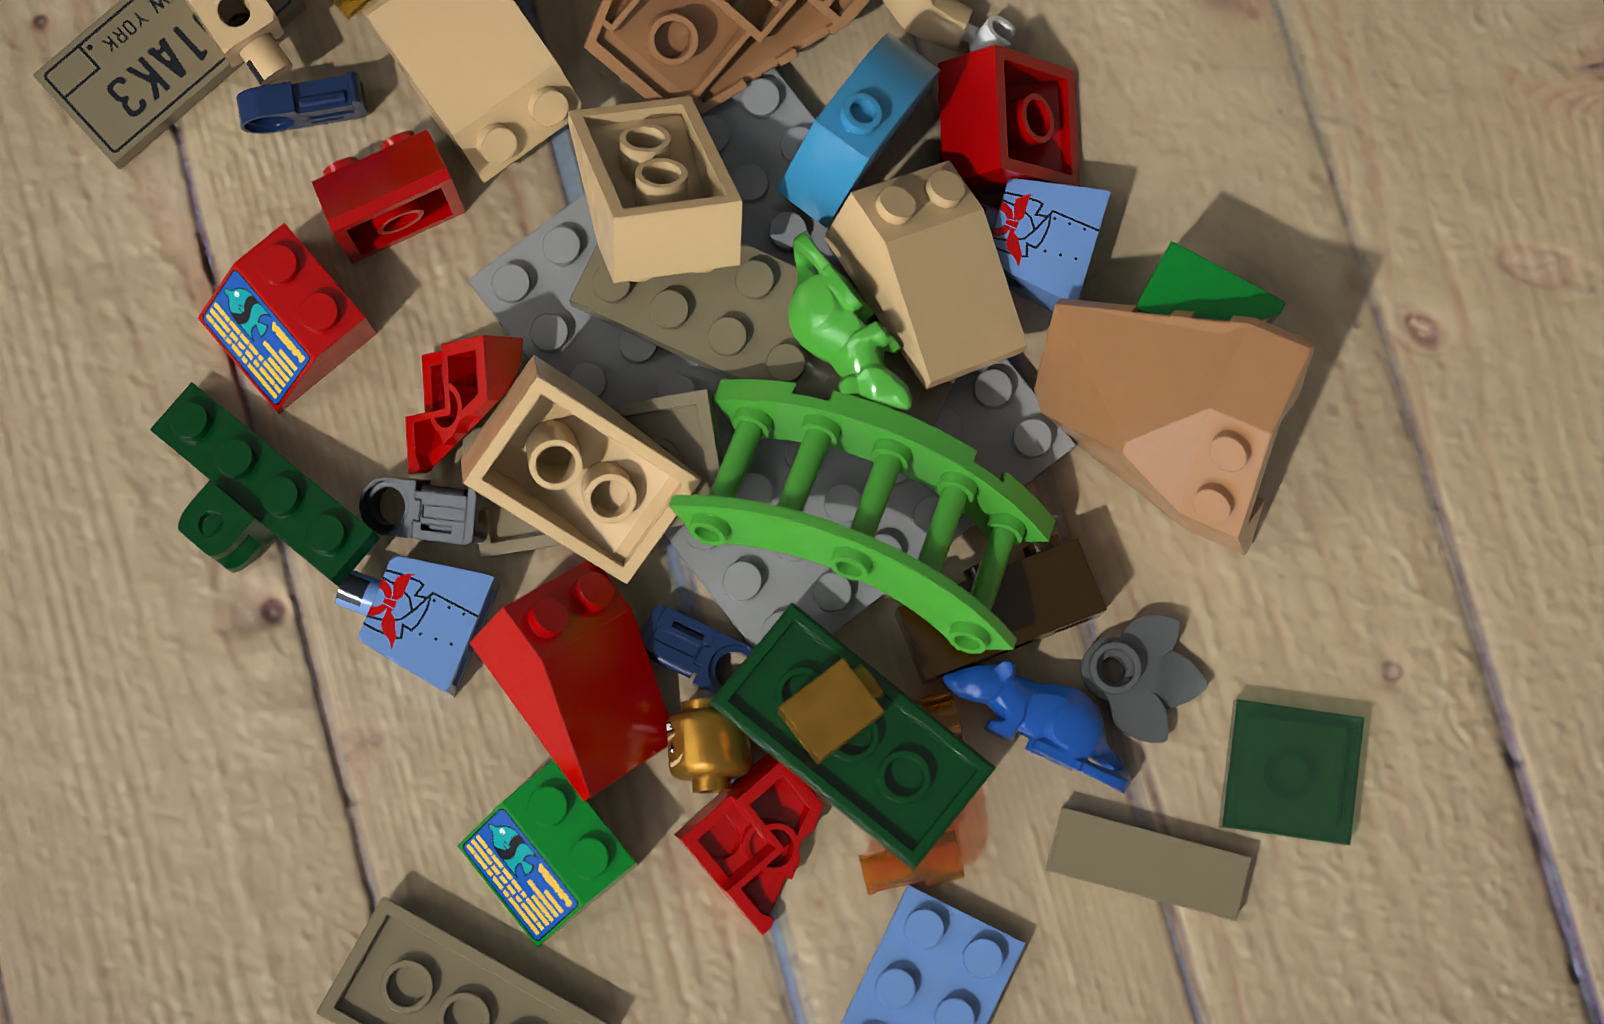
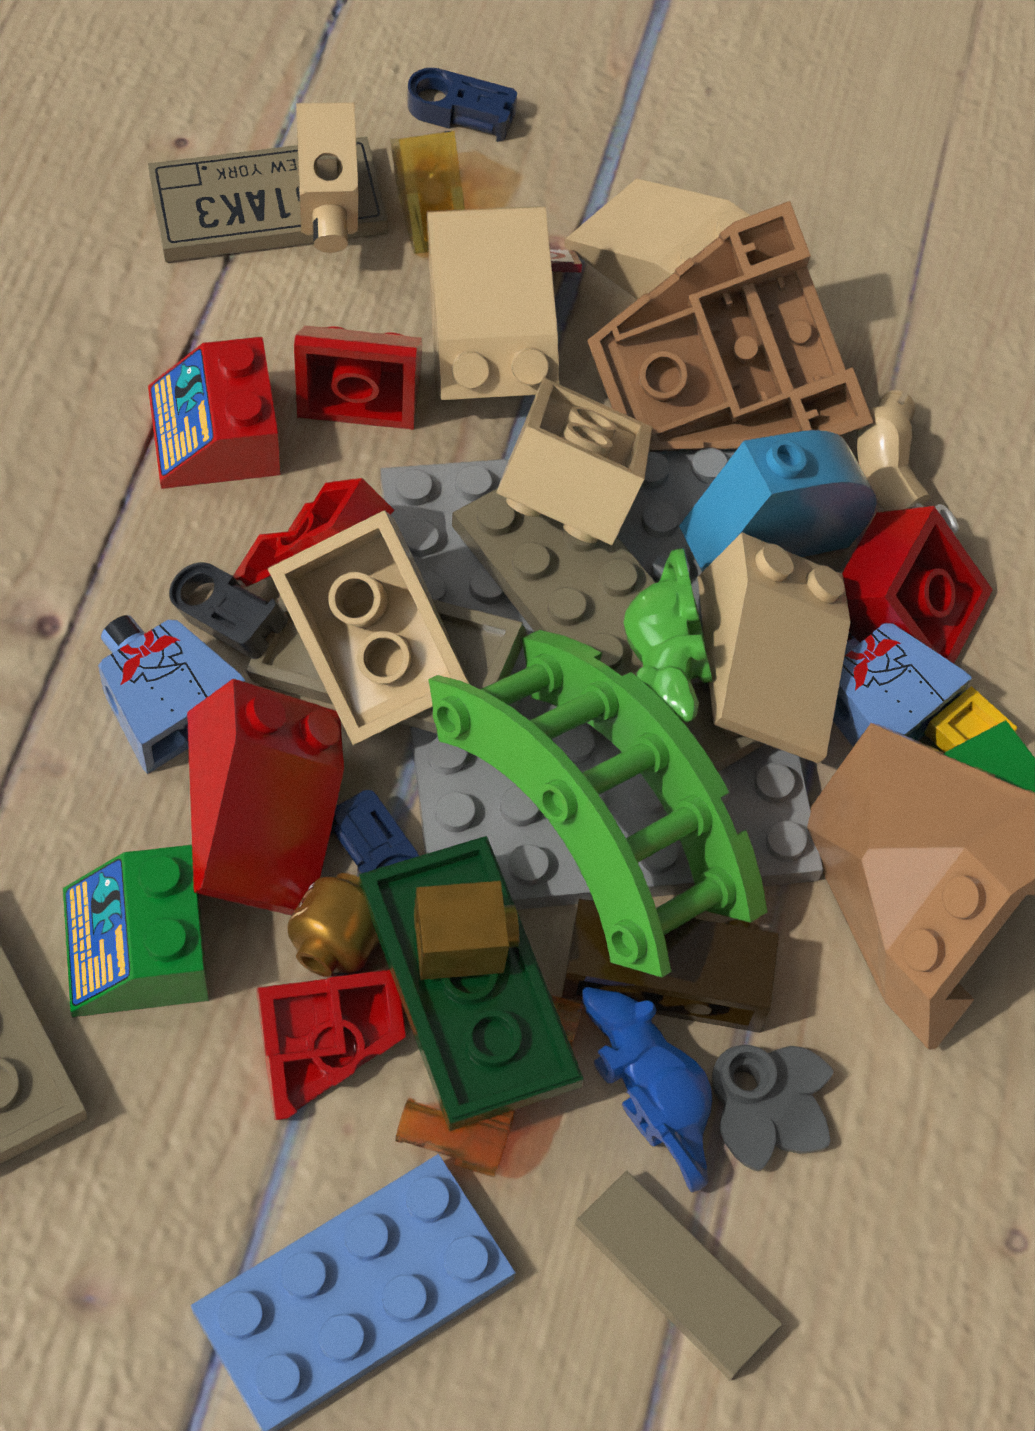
camera: 30 degrees right, 20 degrees down
(255, 494) = (98, 521): dark green plate -> none
(301, 104) = (337, 284): dark blue piece -> none
(1130, 233) = (963, 720): none -> yellow plate
(1291, 772) = (866, 1272): clear green tile -> none

